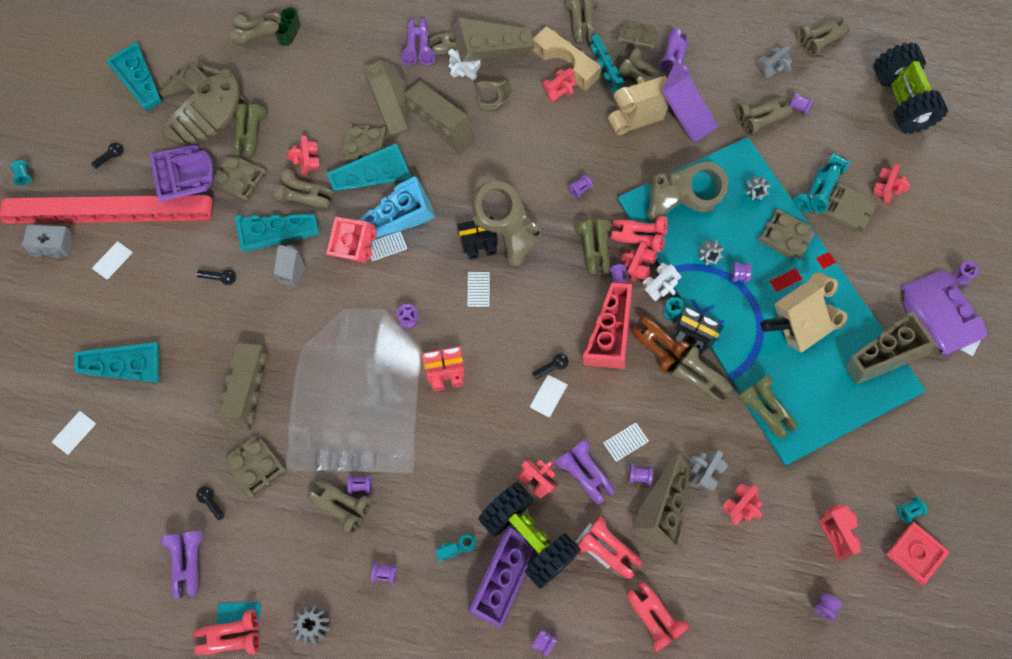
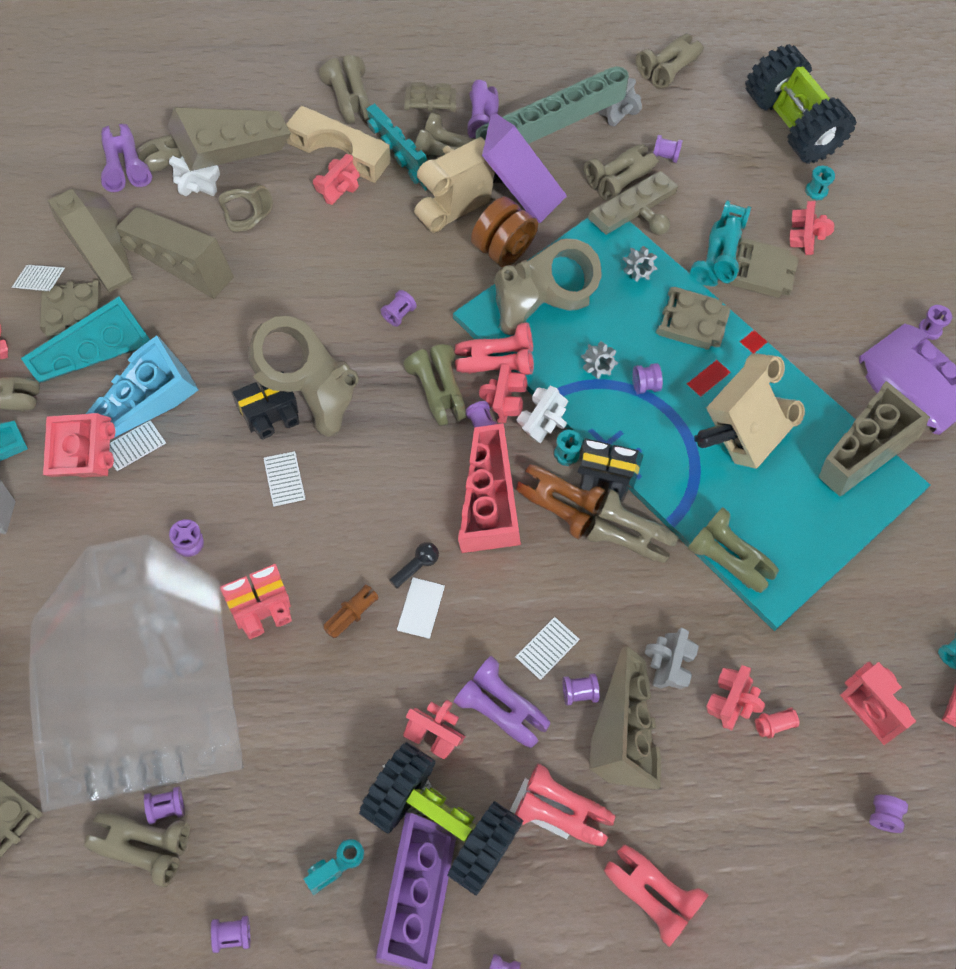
camera: 20 degrees left, 5 degrees down
(347, 118) = (38, 277): none -> white sticker
(501, 388) = (350, 612): none -> dark orange axle
(666, 146) = (504, 231): none -> dark orange wheel
(732, 60) = (567, 105): none -> sand green beam
(767, 140) = (636, 202): none -> dark tan plate
(768, 528) = (770, 724): none -> coral pin
(914, 149) = (820, 182): none -> teal bush

